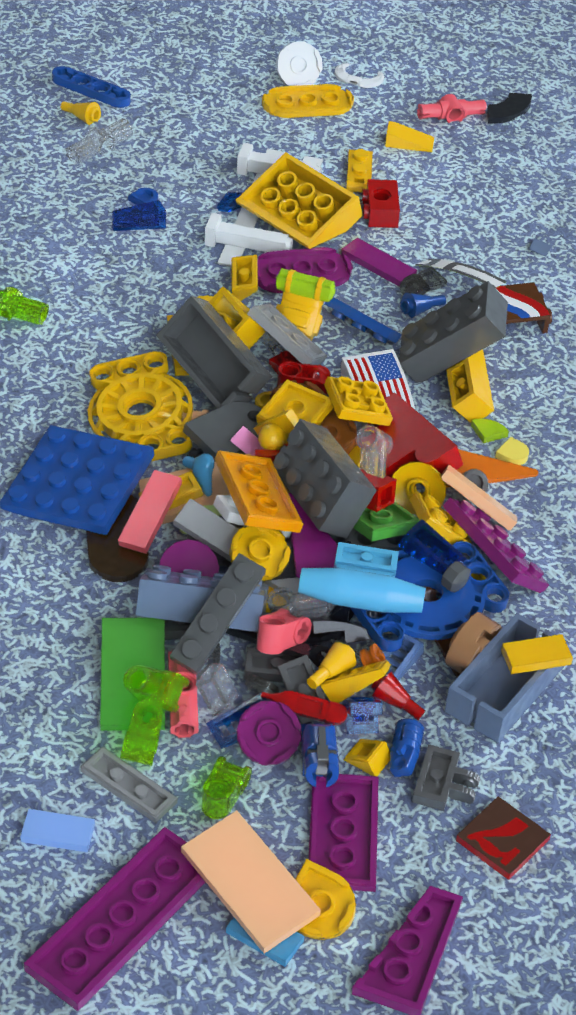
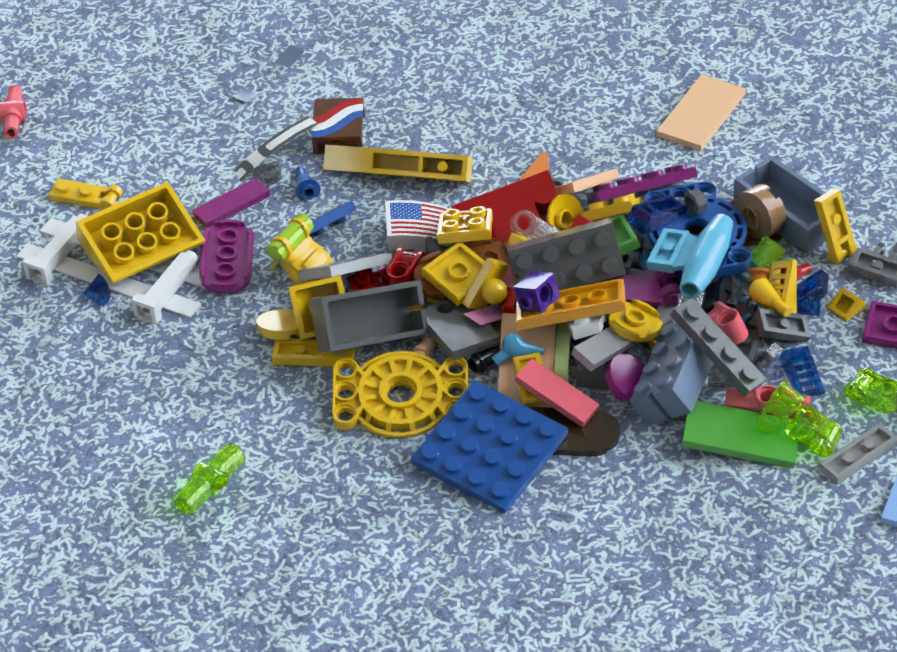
camera: 70 degrees left, 0 degrees up
(140, 217) = (106, 355): clear blue slope -> none
(143, 195) = (65, 358): blue tile -> none
(216, 688) = (775, 375): clear piece -> none
(244, 276) = (230, 295): yellow slope -> none
(268, 450) = (537, 291): none -> dark purple brick
(269, 733) = (823, 354): magenta tile -> none
(311, 706) = (802, 323): red piece -> none
(319, 753) = (854, 322): blue plate -> none
(381, 203) = (144, 176): red brick -> none
(405, 747) = (848, 278): blue hinge -> none
(407, 138) = (44, 152): yellow slope -> none
(414, 284) = (281, 183): clear smoke tile -> none
(414, 664) = (767, 252): none -> clear neon green piece
(453, 332) = (390, 150): dark grey piece -> none
(467, 712) = (835, 226): none -> yellow plate
(489, 430) = (486, 171): lime tile -> none
(512, 107) = (25, 74): black tile -> none
(513, 452) = (517, 161): light yellow tile -> none
(536, 654) = (786, 173): yellow tile -> none

